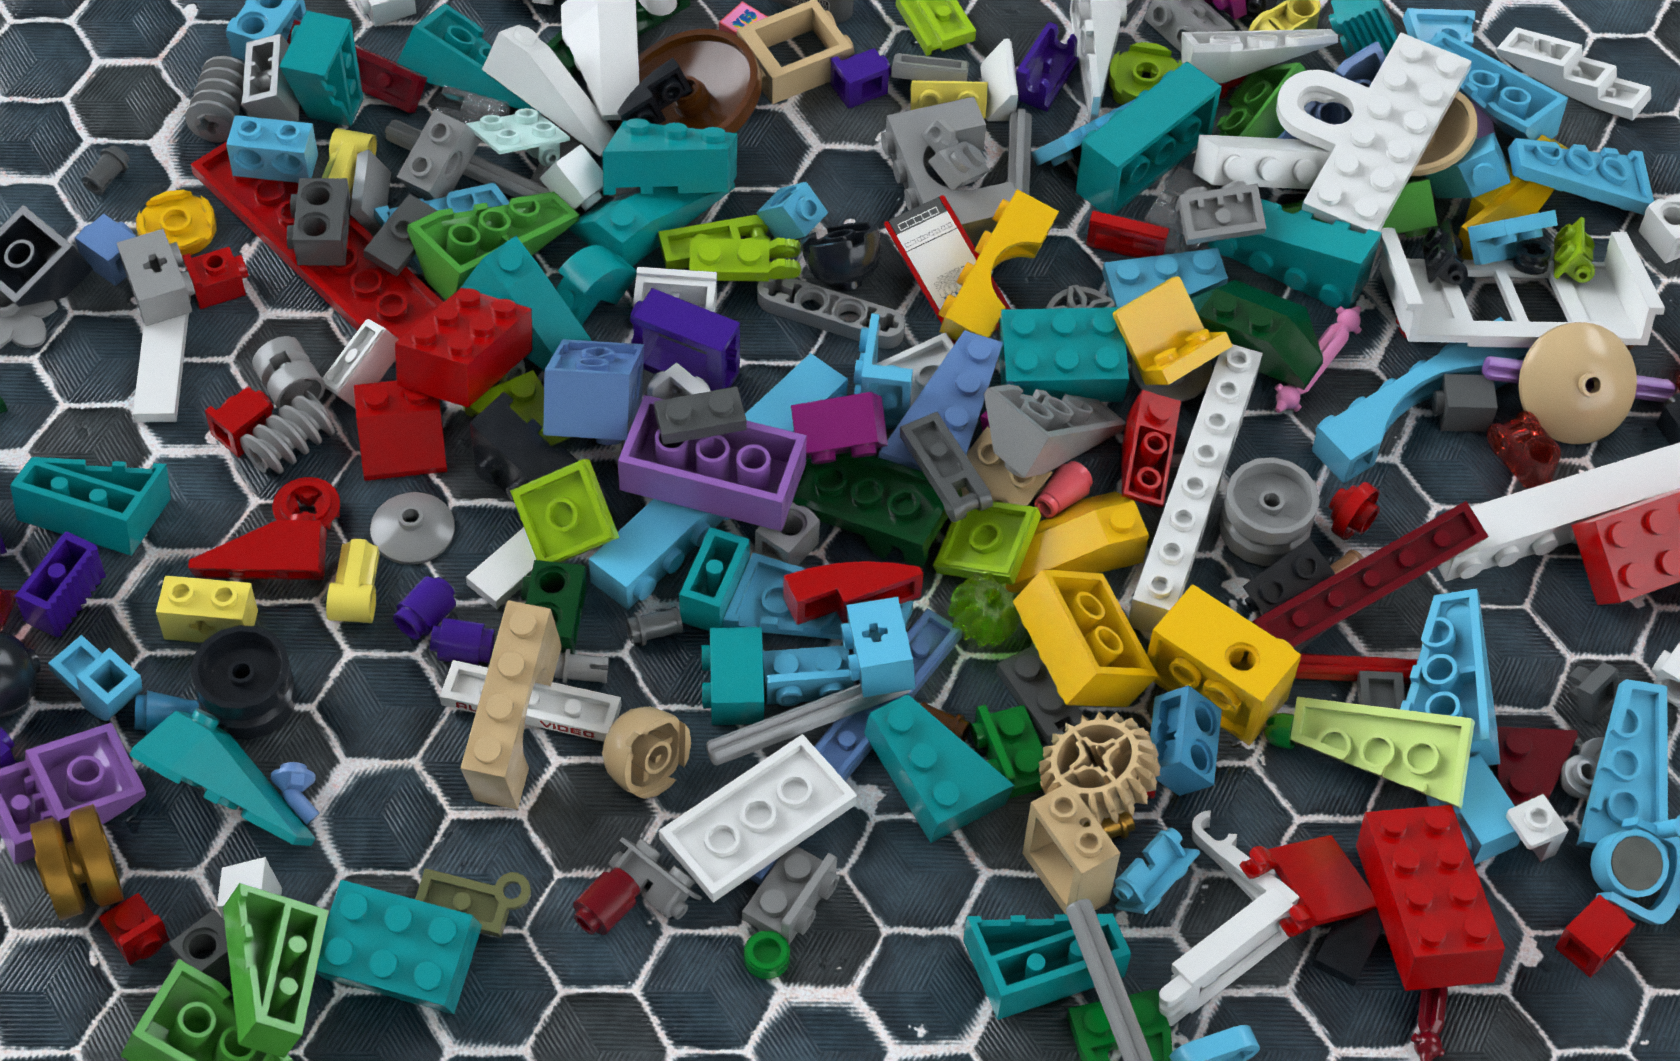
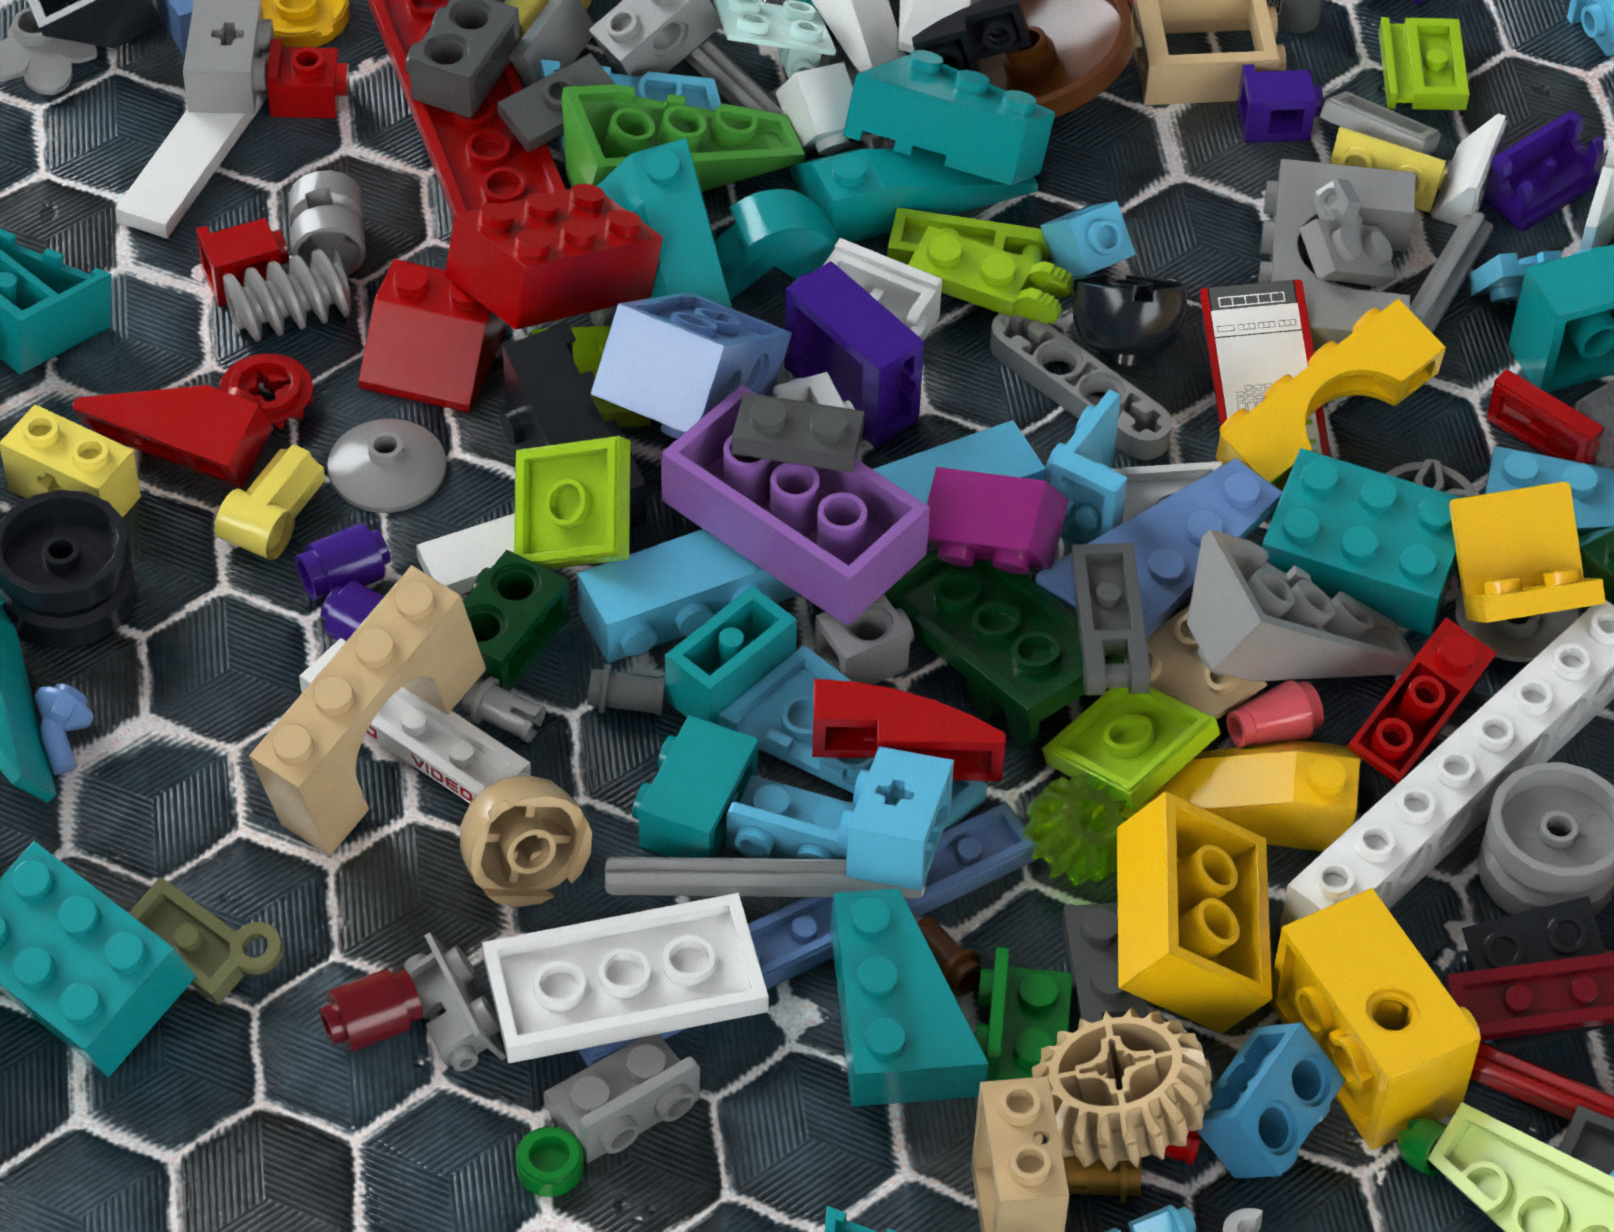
camera: 25 degrees right, 5 degrees down
(361, 361) = (423, 238): white slope -> none

